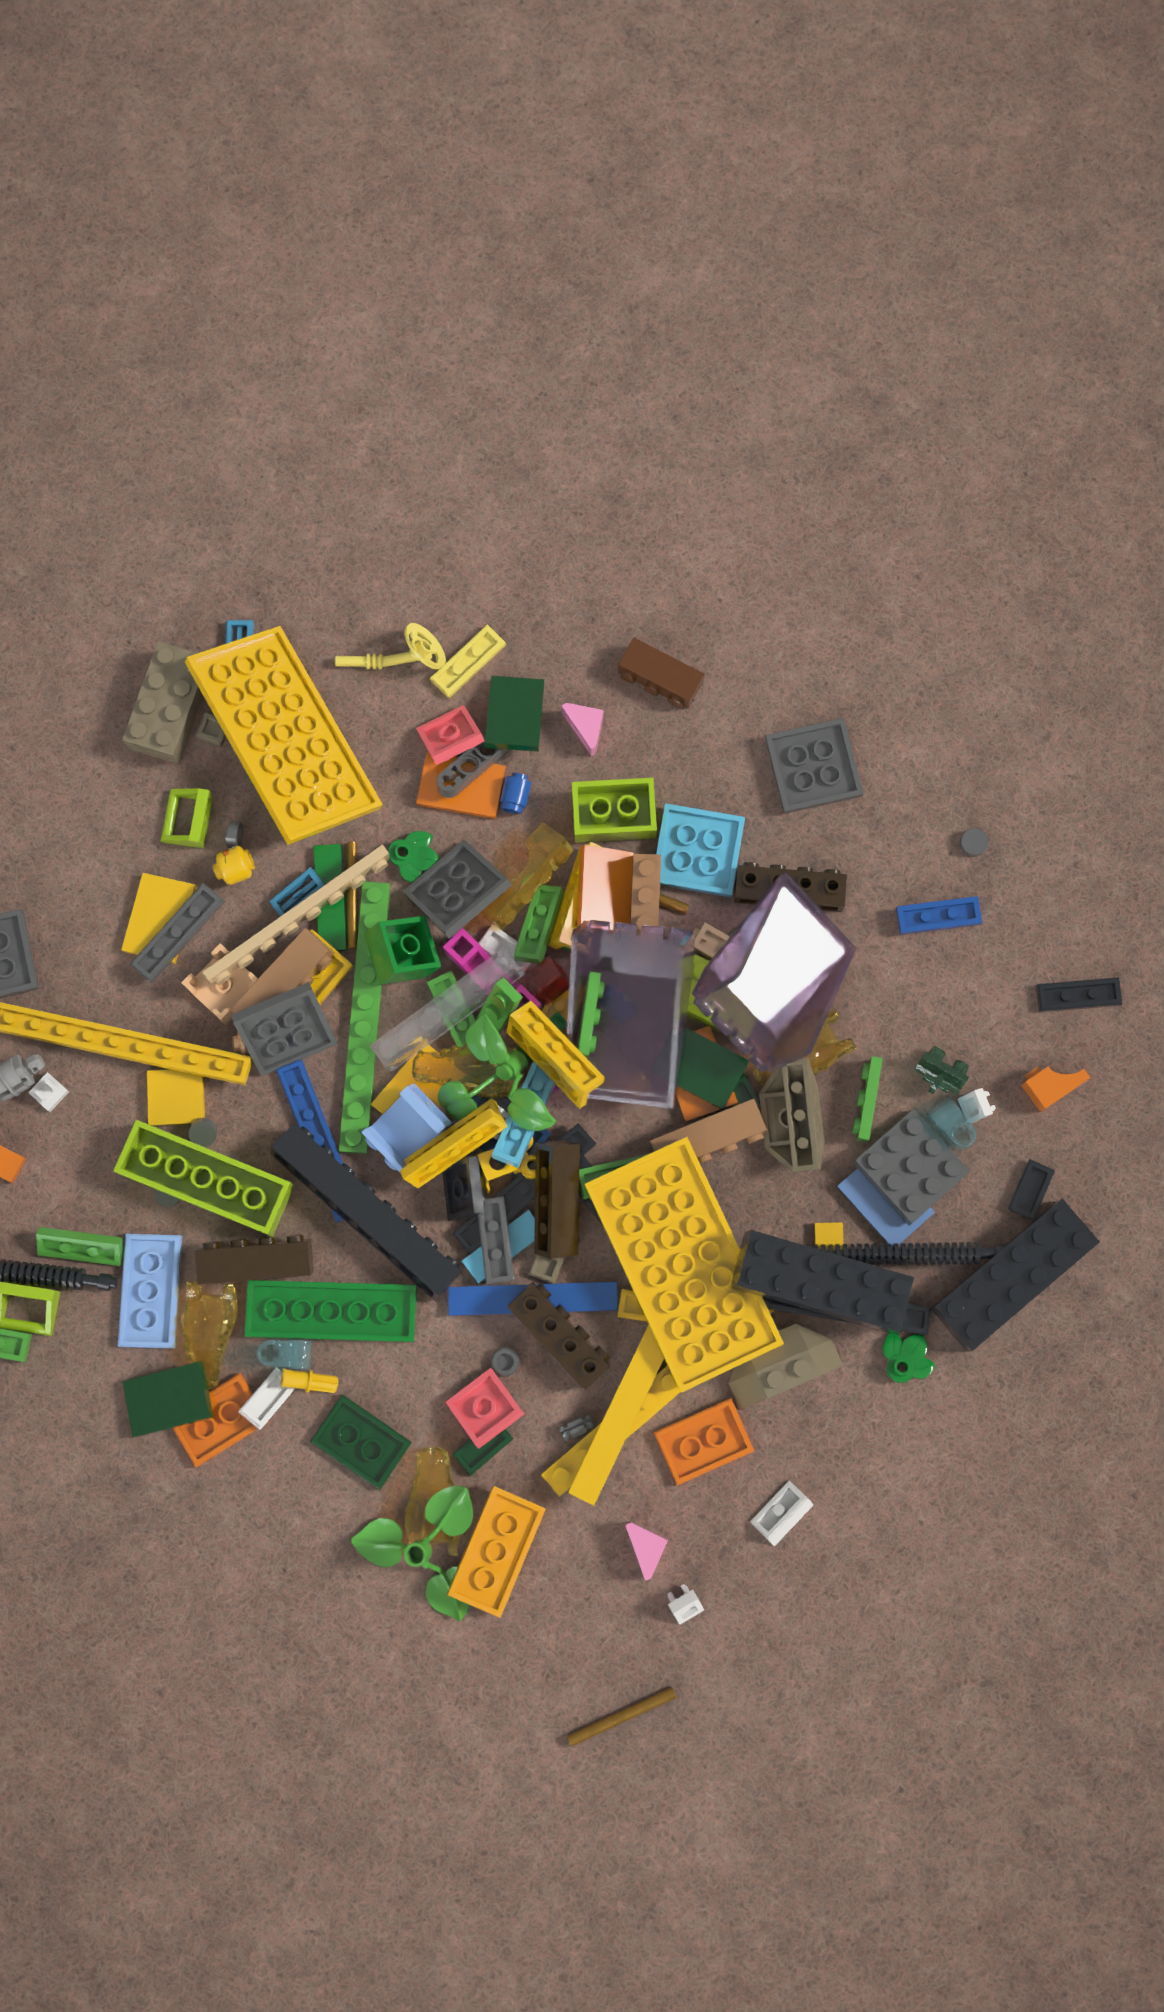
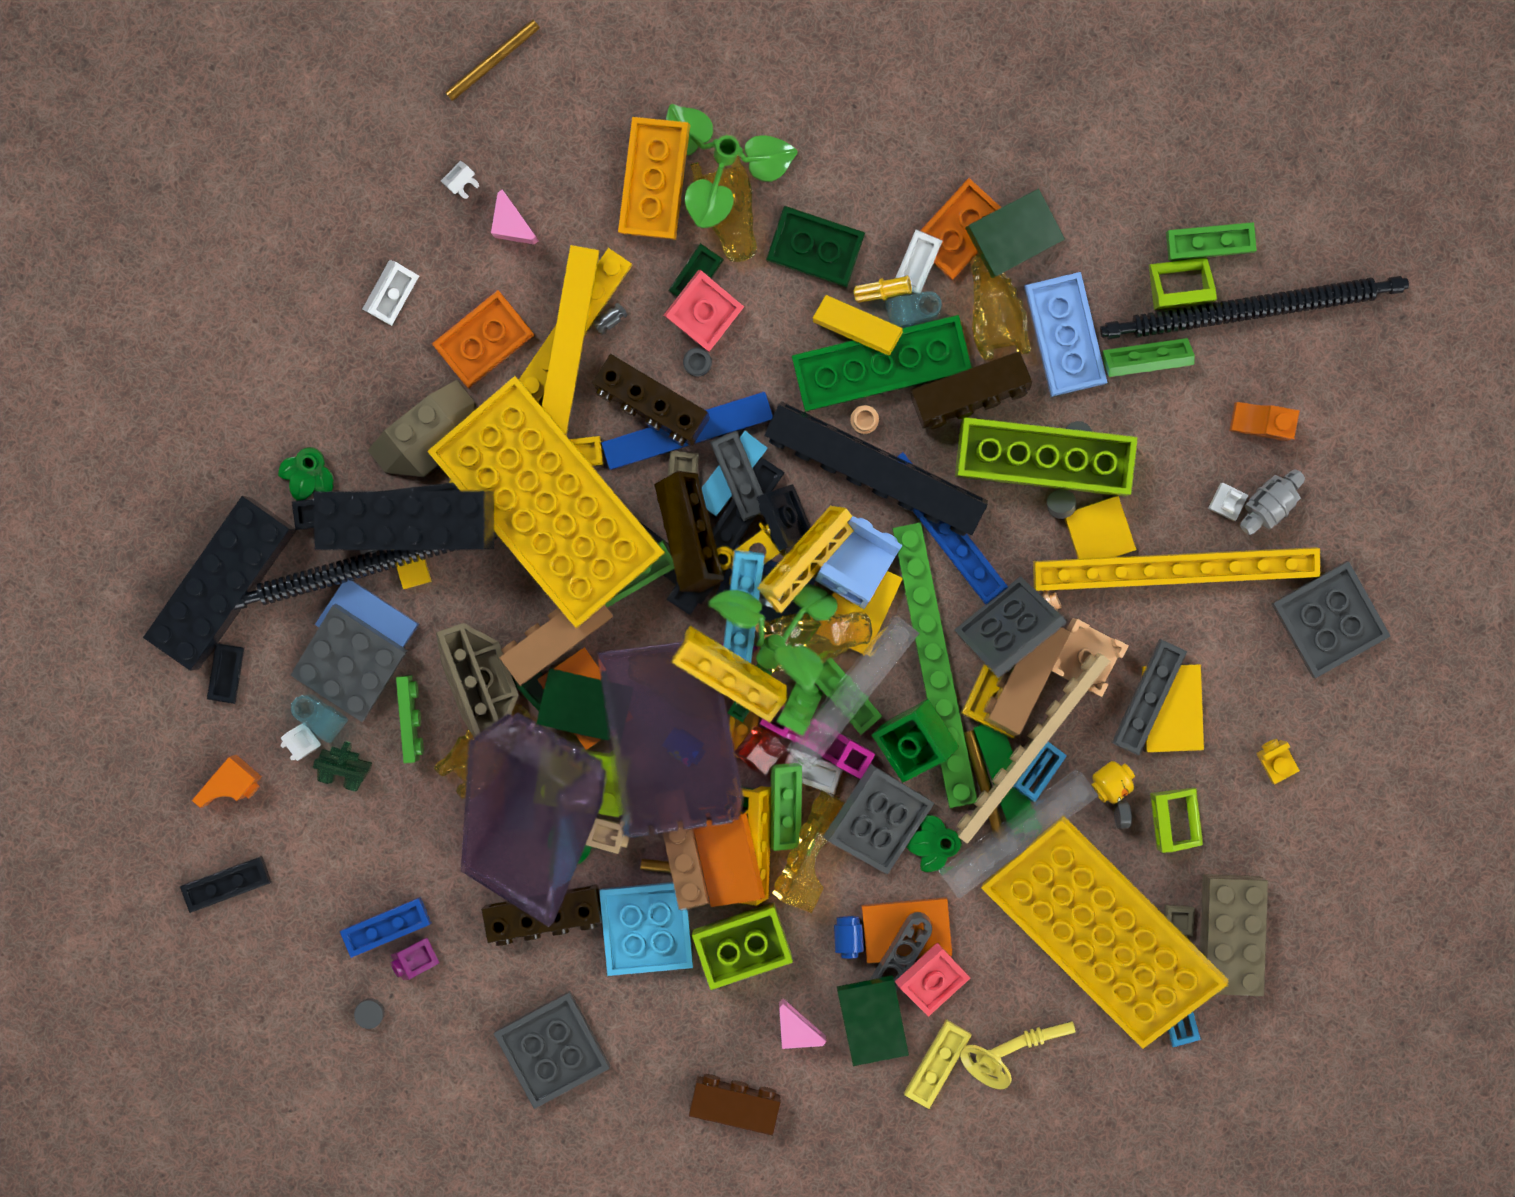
camera: 165 degrees right, 10 degrees up
(79, 845) = (1277, 760): none -> yellow bracket
(334, 842) = (1017, 833): none -> clear brick
(342, 1353) = (857, 325): none -> yellow tile
(362, 1262) = (864, 419): none -> light nougat plate
(590, 1015) = (706, 724): bright green plate -> none
(920, 878) = (414, 959): none -> magenta bracket

